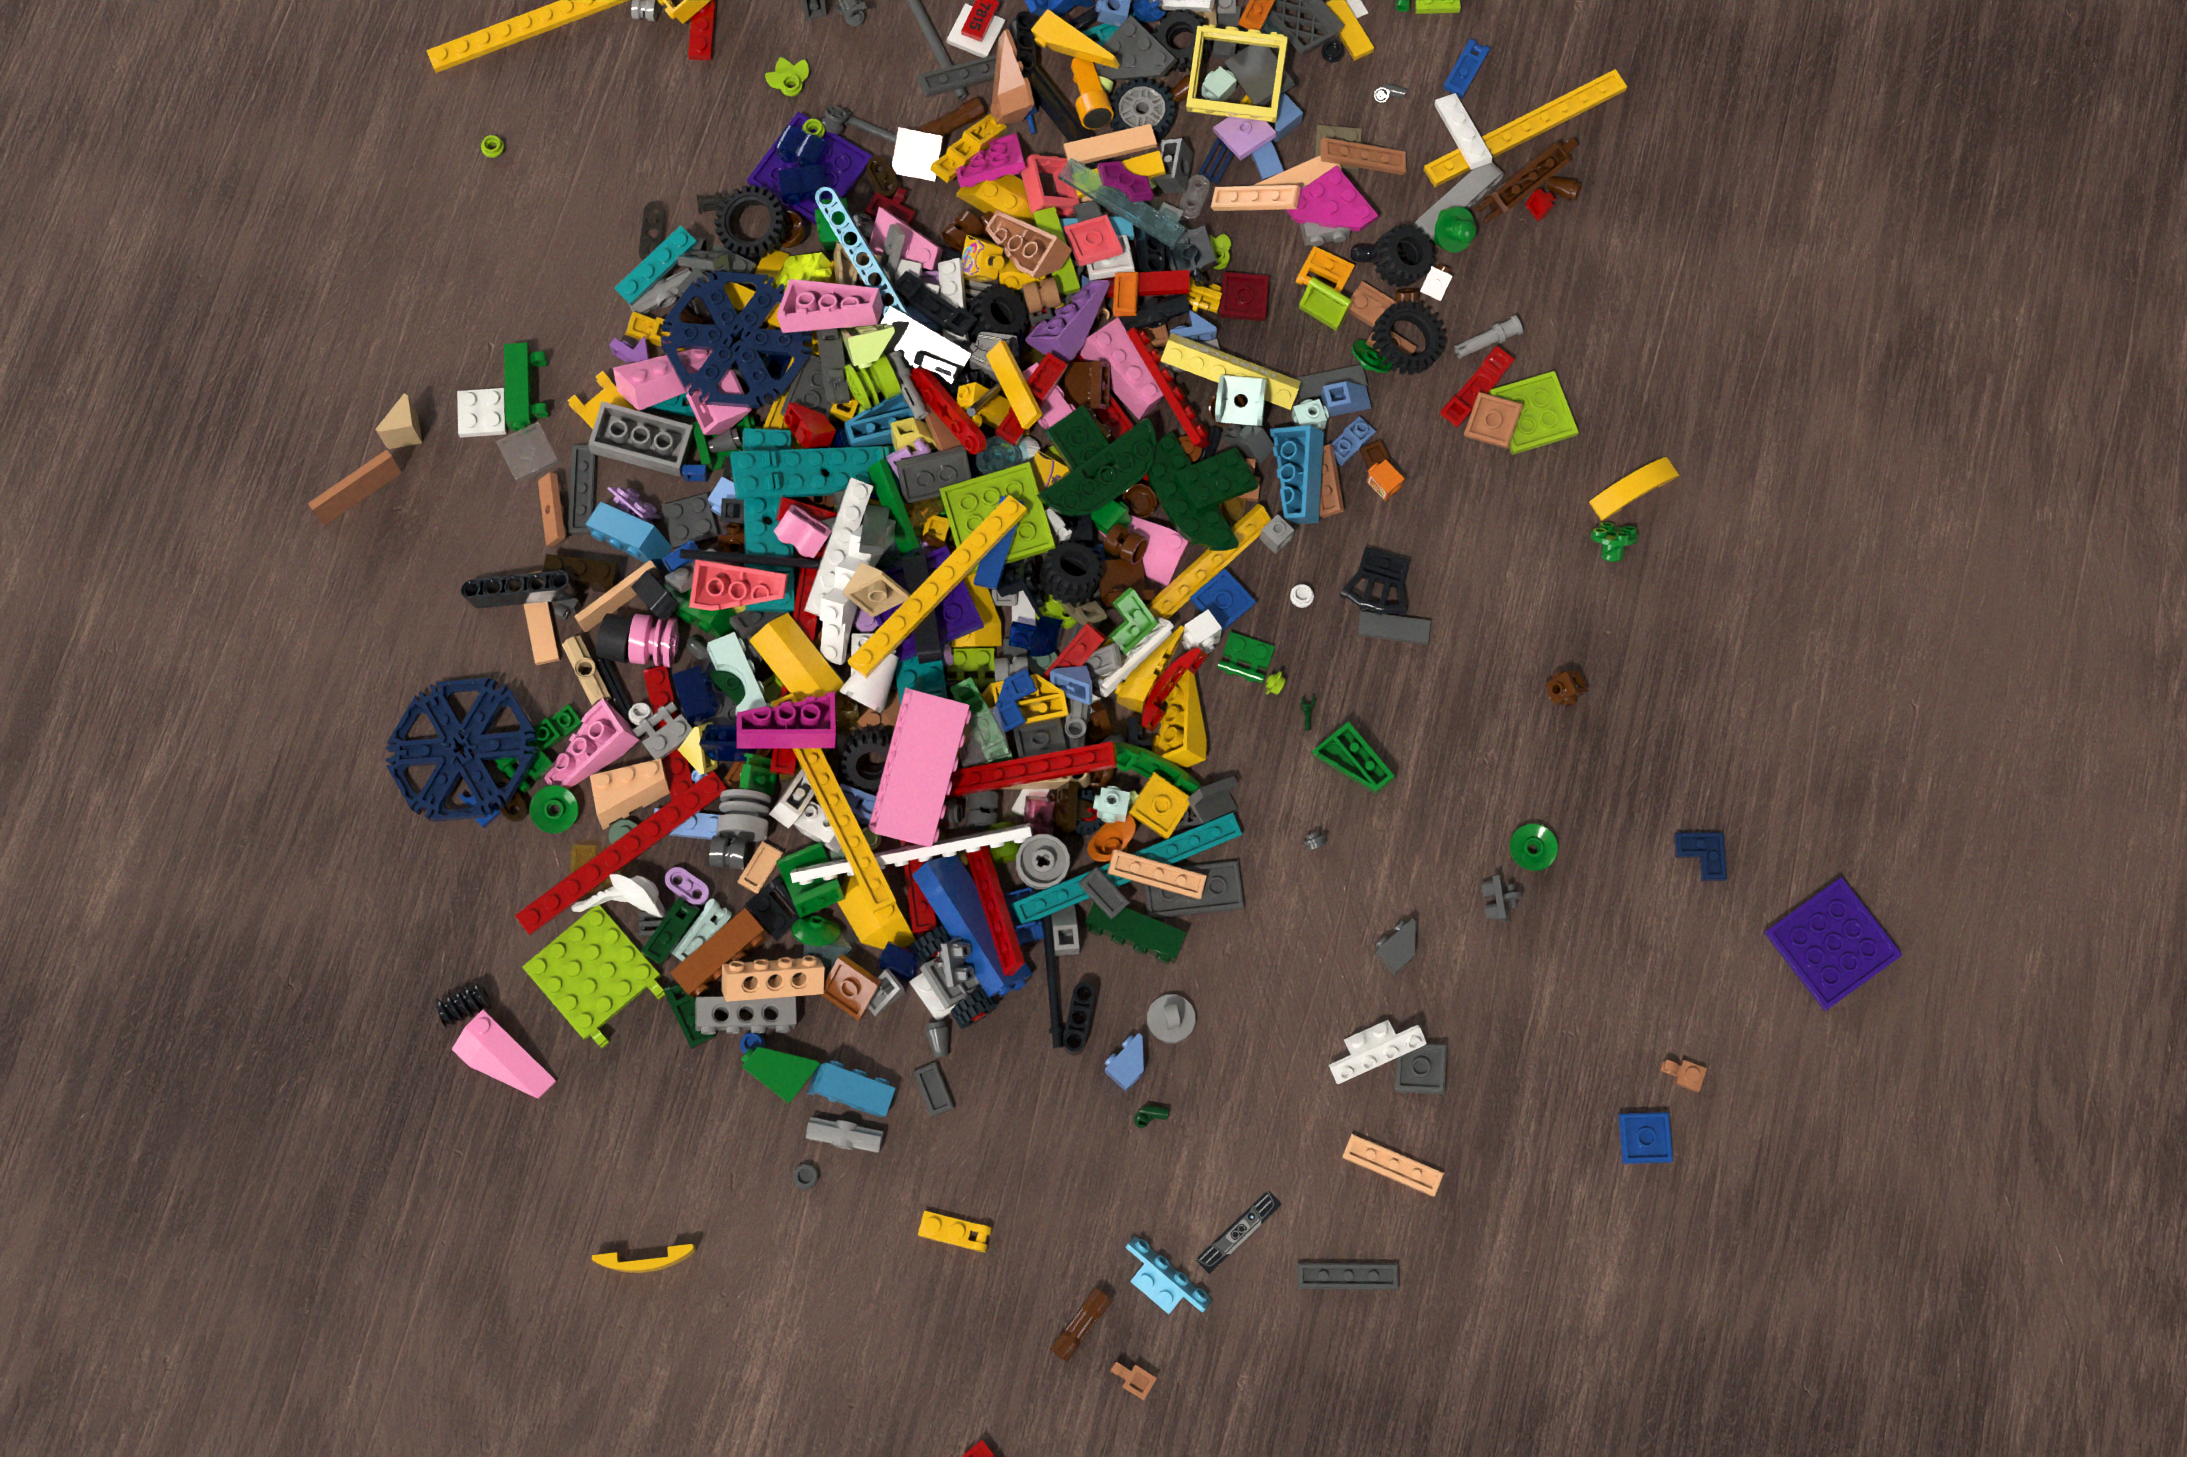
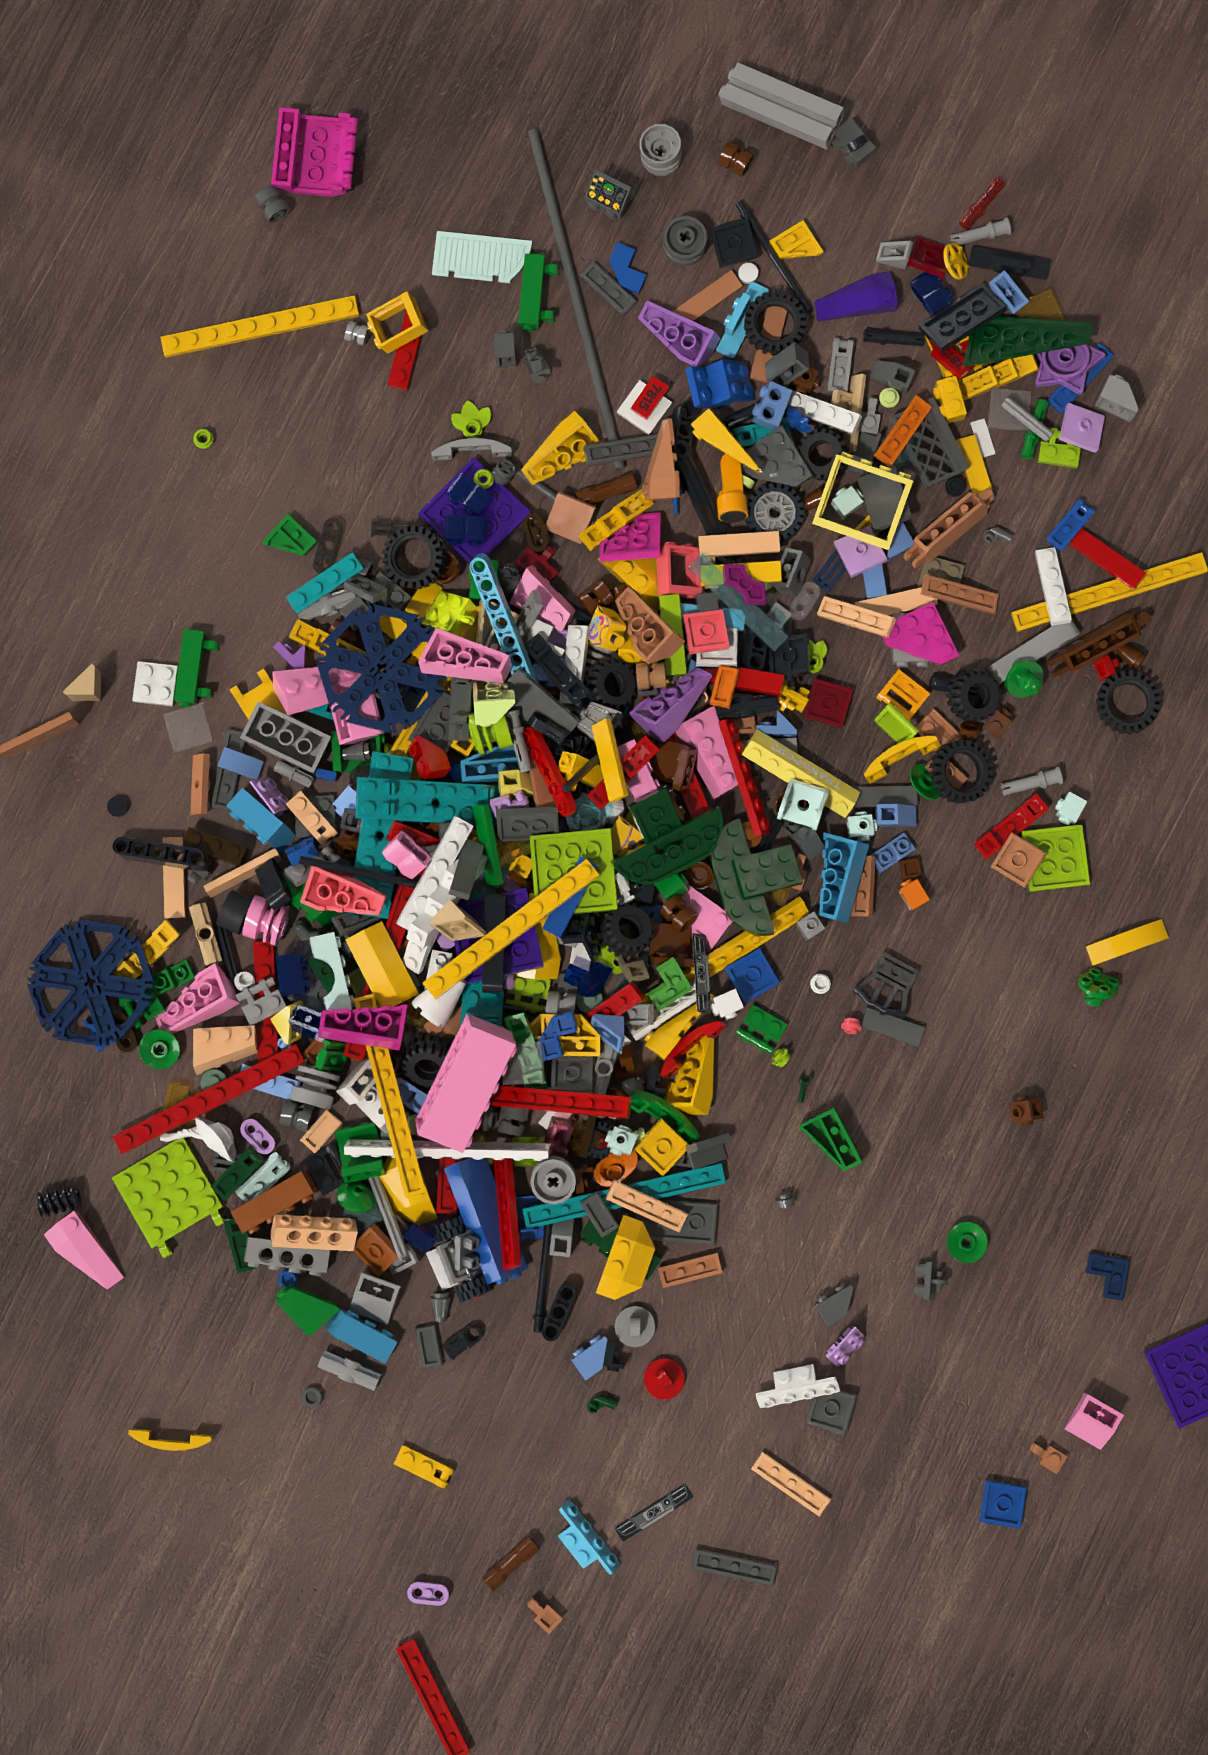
camera: 15 degrees right, 10 degrees up
(460, 552) = (117, 806): none -> black tile
(530, 695) = (154, 948): none -> yellow slope
(593, 477) = (240, 763): none -> medium blue slope
(608, 230) = (290, 537): none -> green wing
(657, 479) = (293, 773): none -> light grey axle
(685, 520) = (311, 817): none -> light nougat plate
(792, 100) = (471, 444): none -> light grey slope
(857, 944) = (389, 1218): none -> light grey axle
(859, 1042) = (375, 1298): none -> light grey slope
(893, 86) = (560, 449): none -> yellow wedge
(969, 1076) = (460, 1342): none -> black piece
(988, 1381) = (428, 1593): none -> lavender plate
(1076, 865) = (581, 1182): none -> reddish brown bracket
(1146, 940) = (627, 1260): none -> yellow wedge
(1150, 1052) = (610, 1353): none -> black bracket
(1165, 603) = (701, 973): none -> sticker
(1217, 1072) = (663, 1378): none -> red tile
(1221, 941) = (690, 1270): none -> nougat plate
(1334, 330) = (897, 752): none -> yellow slope
(1336, 89) = (949, 527): none -> nougat hinge
(1347, 633) = (851, 1025): none -> coral plate
(1418, 997) = (840, 1354): none -> lavender hinge
(1515, 93) = (1107, 559): none -> red tile
(1537, 356) = (1070, 808): none -> light aqua brick
(1578, 212) = (1145, 685): none -> black tyre
(1727, 1019) = (1093, 1421): none -> bright pink slope

